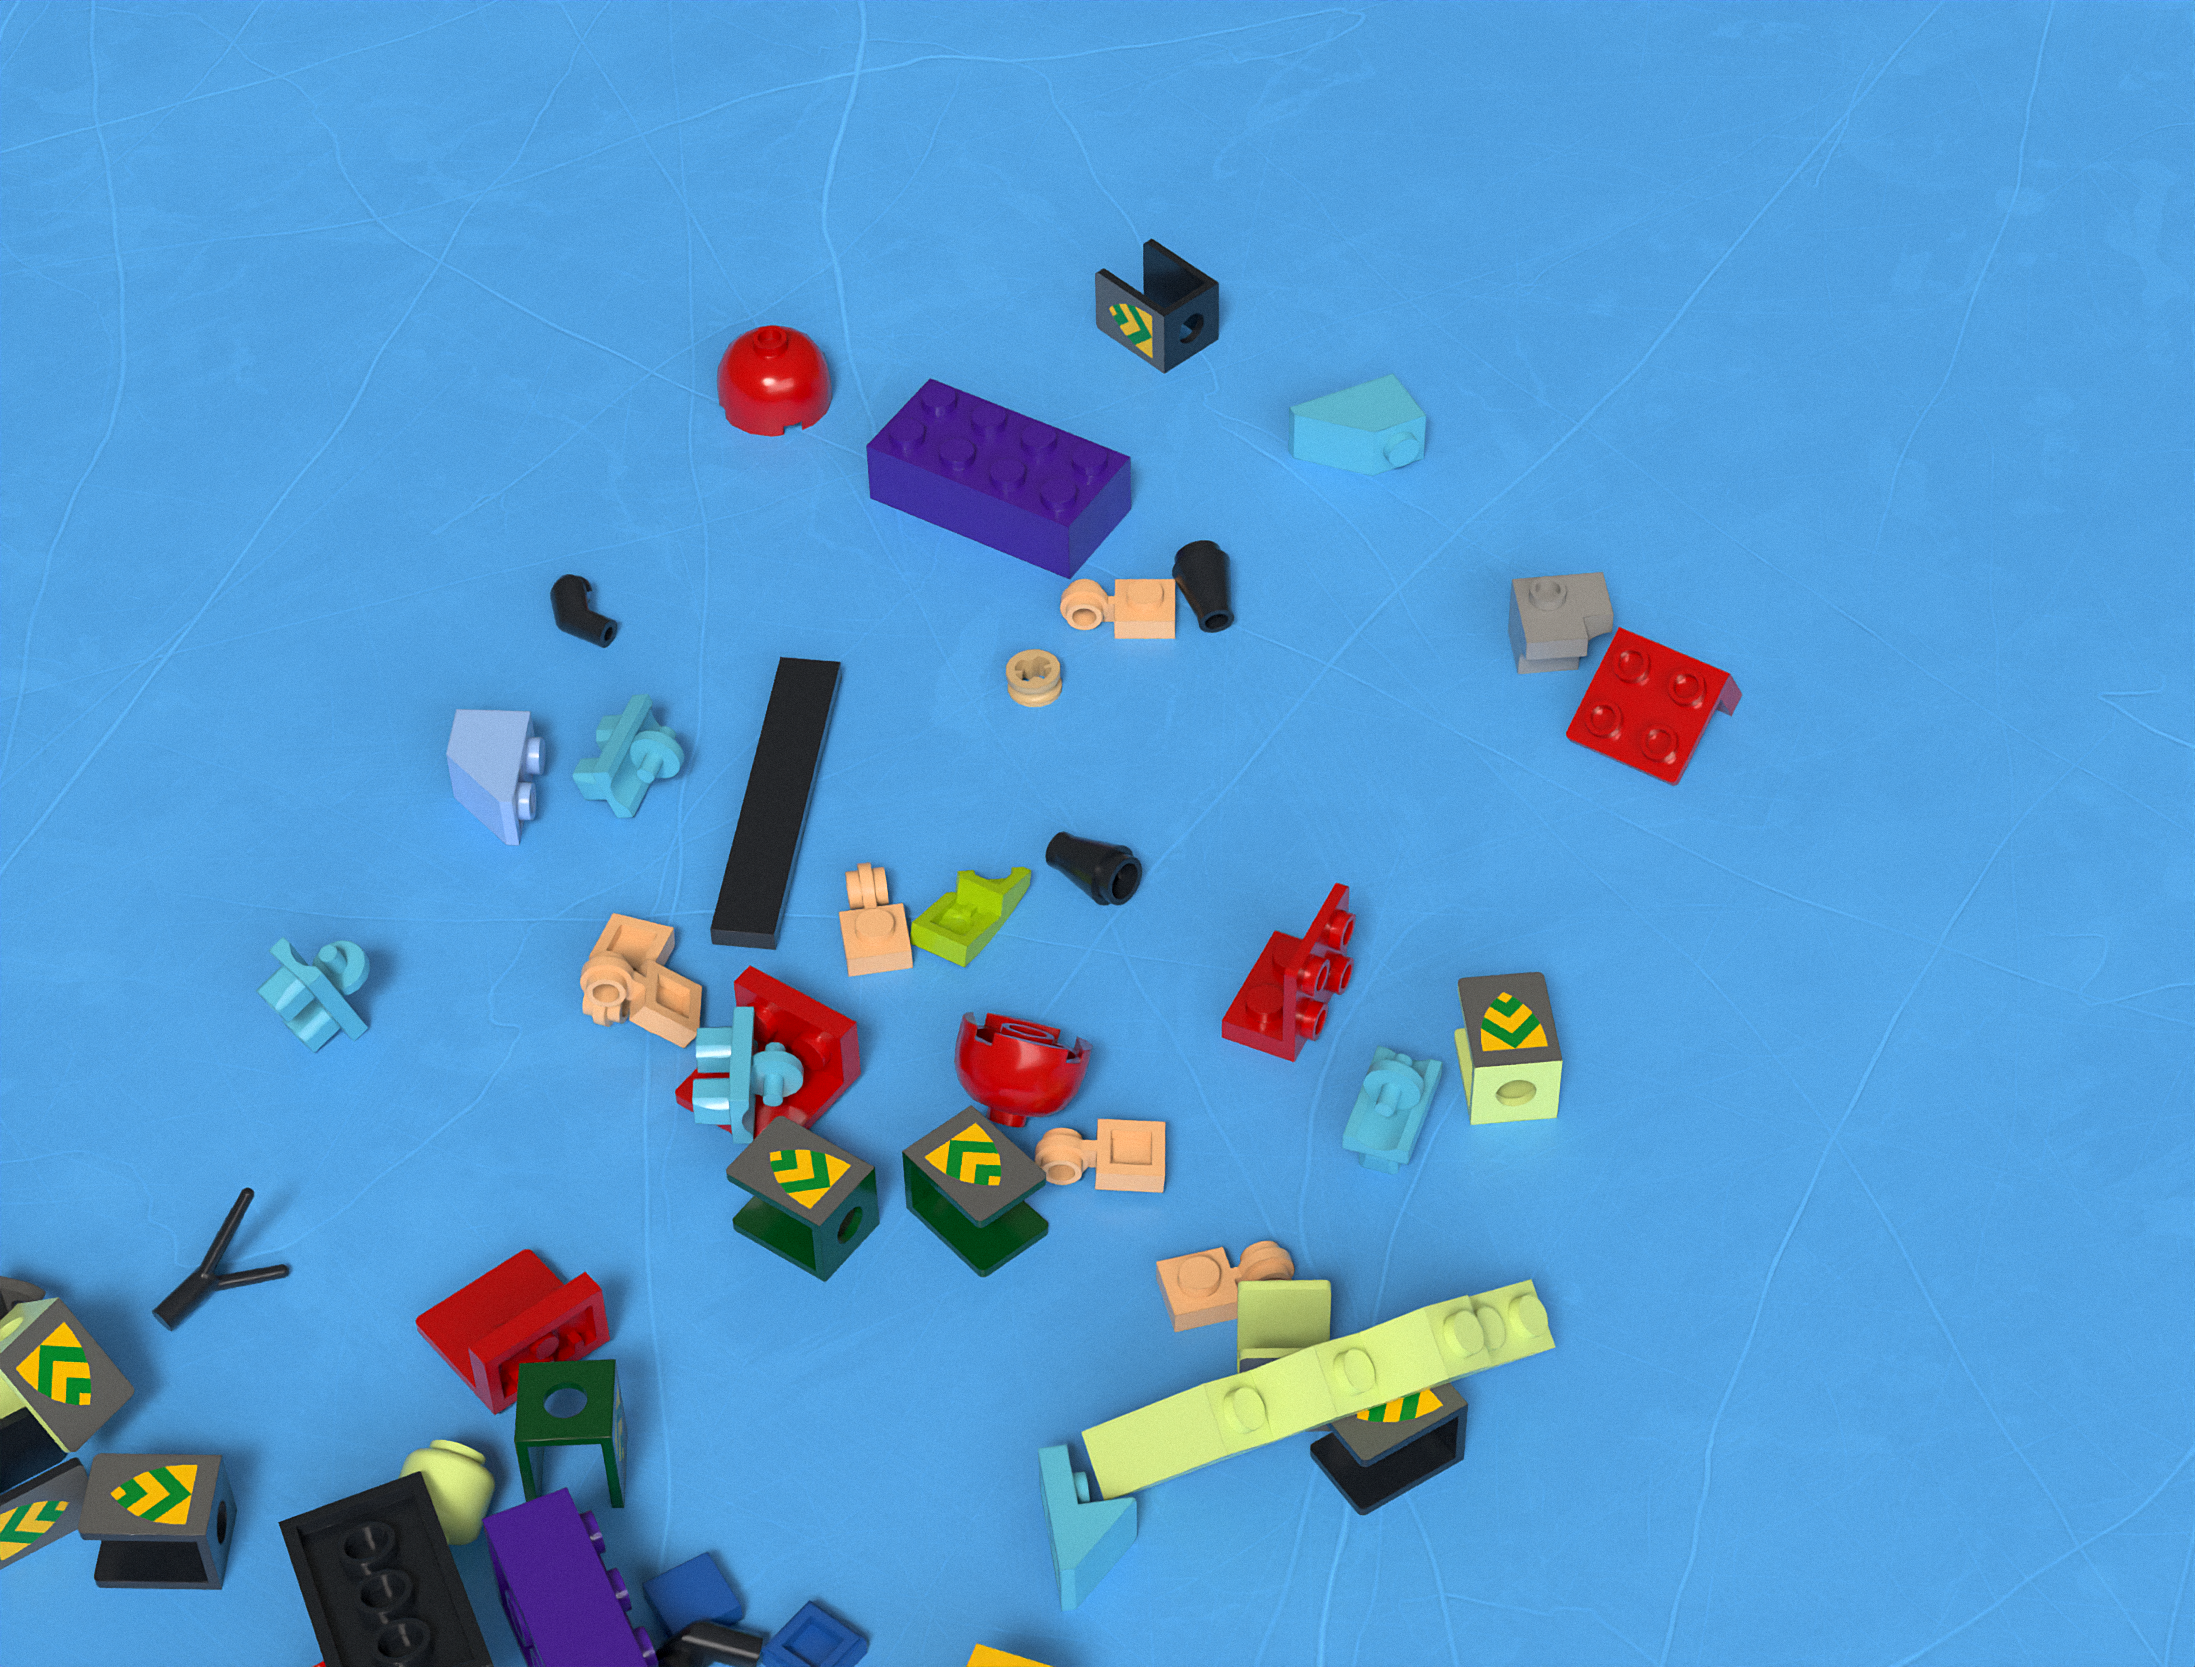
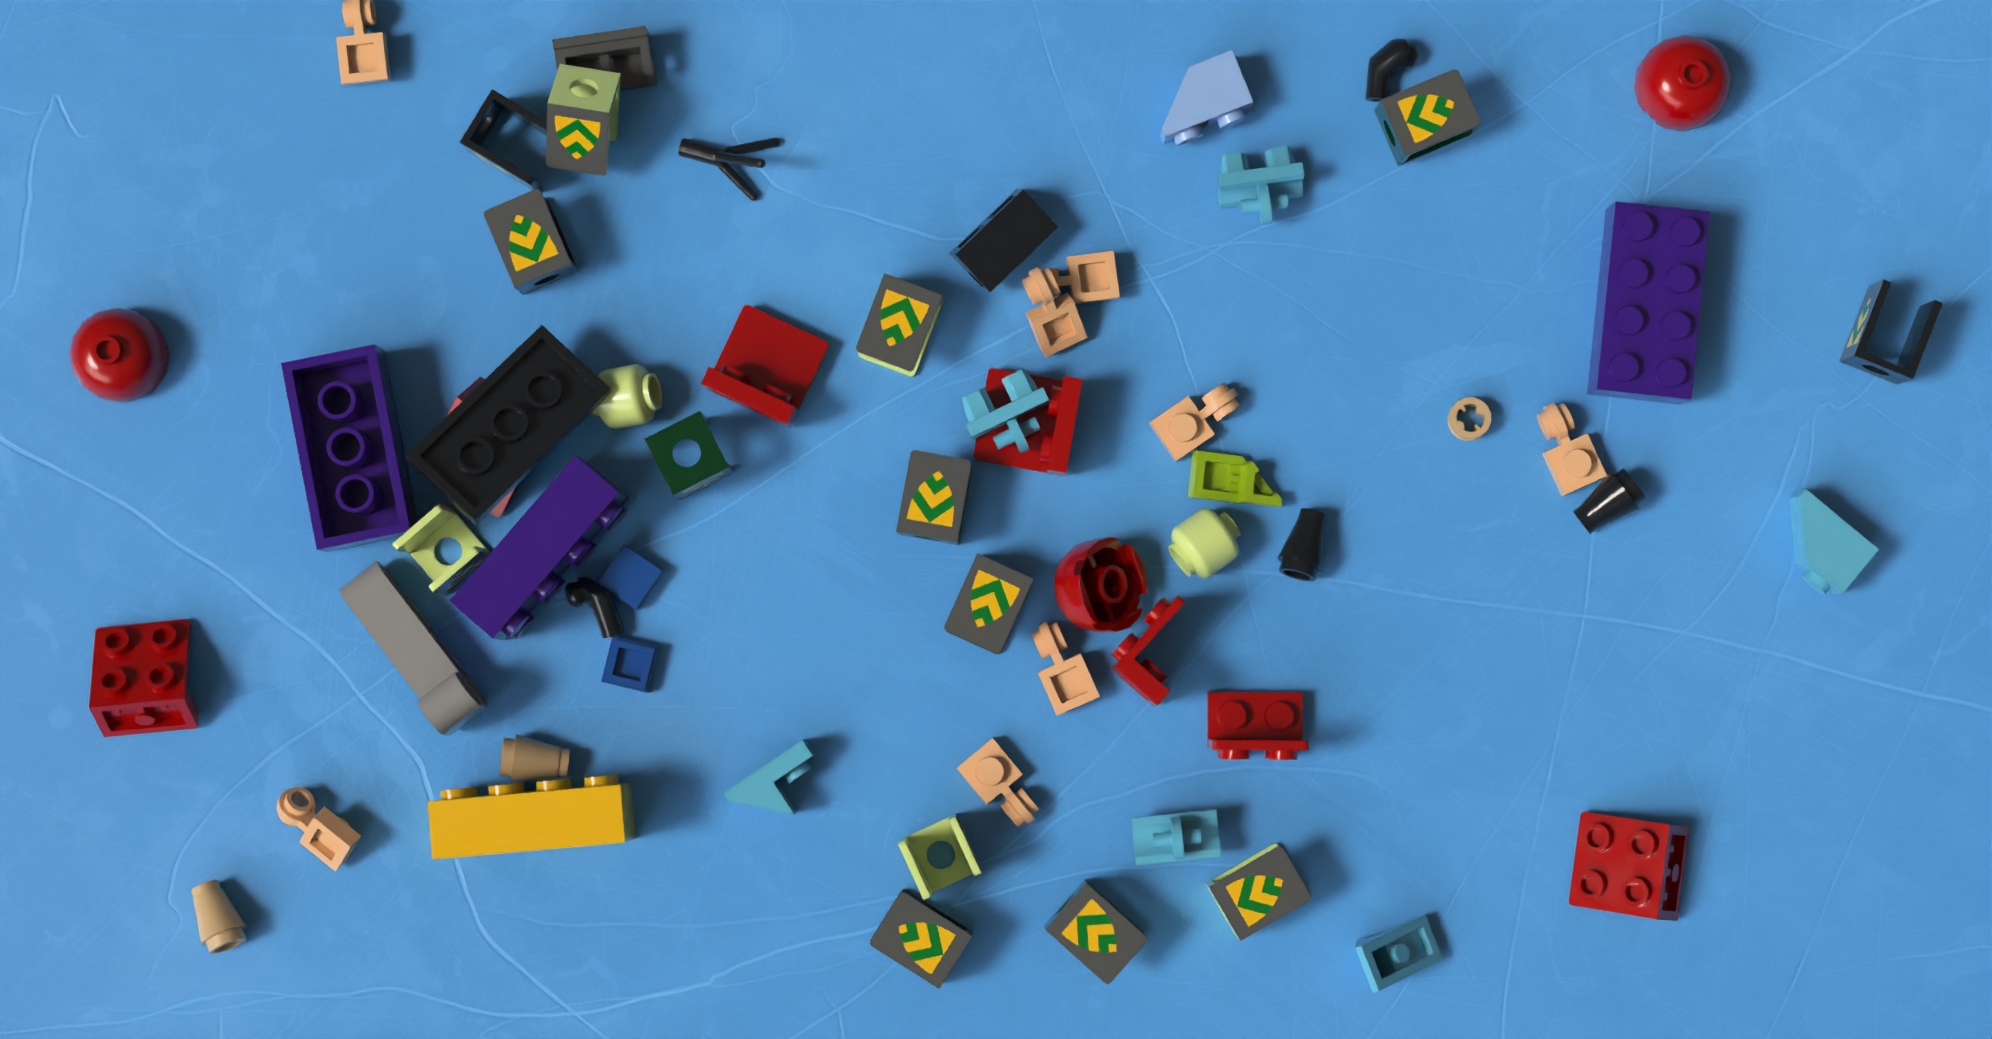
camera: 65 degrees right, 40 degrees up
(312, 996) = (952, 100): medium azure hips -> none
(522, 1018) = (1003, 240): none -> black hinge
(551, 1153) = (899, 325): none -> piece
(656, 584) = (1427, 116): none -> piece
(776, 804) = (1276, 299): black tile -> none
(1031, 951) = (1204, 543): none -> yellowish green head
(1147, 1056) = (1145, 677): none -> red bracket
(1317, 1387) = (888, 906): yellowish green arch -> none
(1474, 1229) = (1096, 932): none -> dark grey piece
(1556, 619) = (1672, 770): light grey brick -> none
(1656, 955) = (1398, 953): none -> medium azure slope

